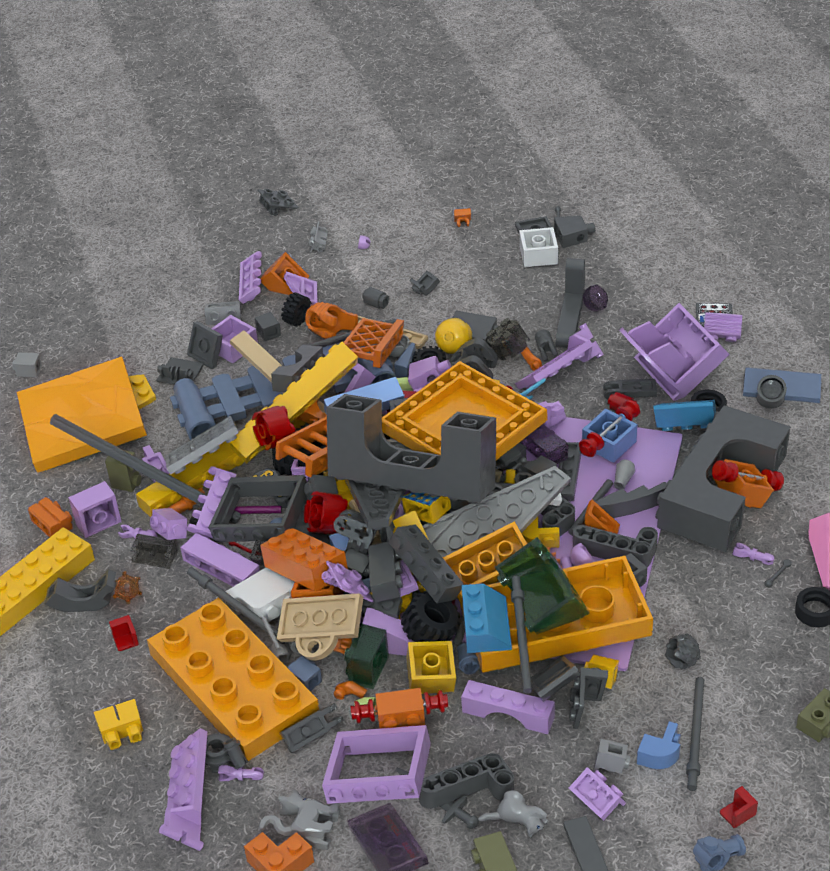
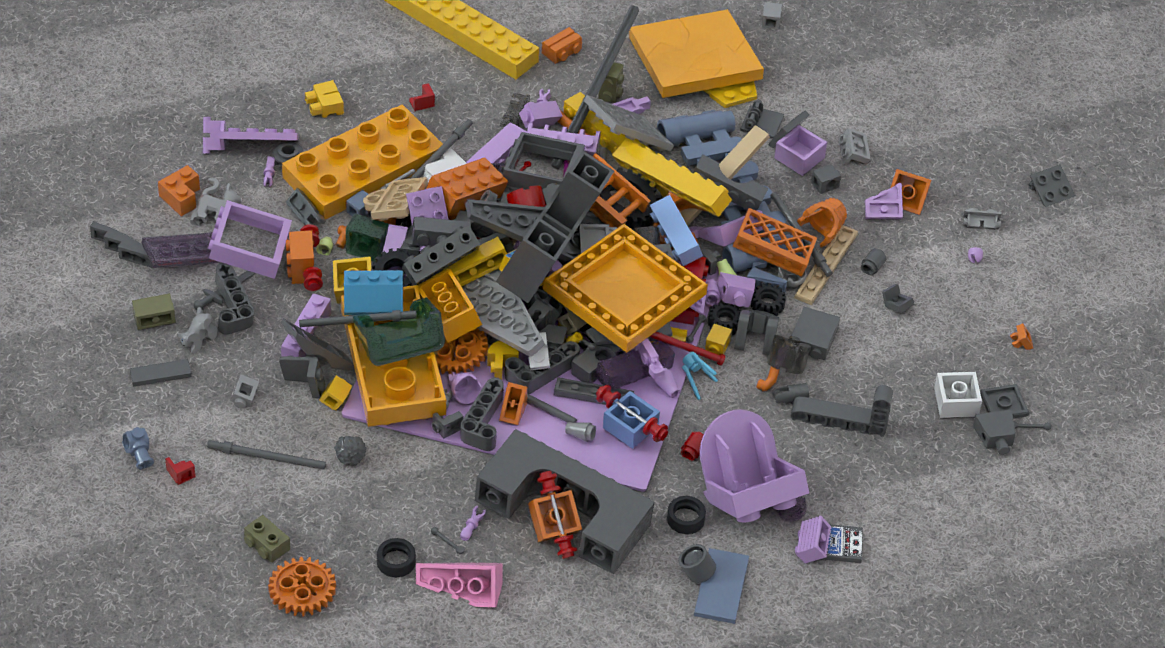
camera: 85 degrees right, 5 degrees up
(77, 598) = (465, 66): dark grey arch -> none
(95, 509) = (562, 66): lavender brick -> none
(134, 590) = (470, 94): clear orange rock -> none
(235, 753) = (281, 156): dark grey pin -> none
(248, 277) = (910, 164): lavender hinge -> none
(272, 426) = (627, 156): red brick -> none
(295, 309) = (847, 193): black tyre -> none
(452, 335) = (791, 309): yellow cylinder -> none
(578, 349) = (776, 414): lavender hinge -> none
(595, 298) = (866, 435): clear purple hair -> none
(596, 794) = (212, 383): lavender bracket -> none
(623, 503) = (539, 422): dark grey slope -> none
(659, 752) = (247, 425): medium blue brick -> none
(684, 414) = (662, 480): dark azure slope -> none

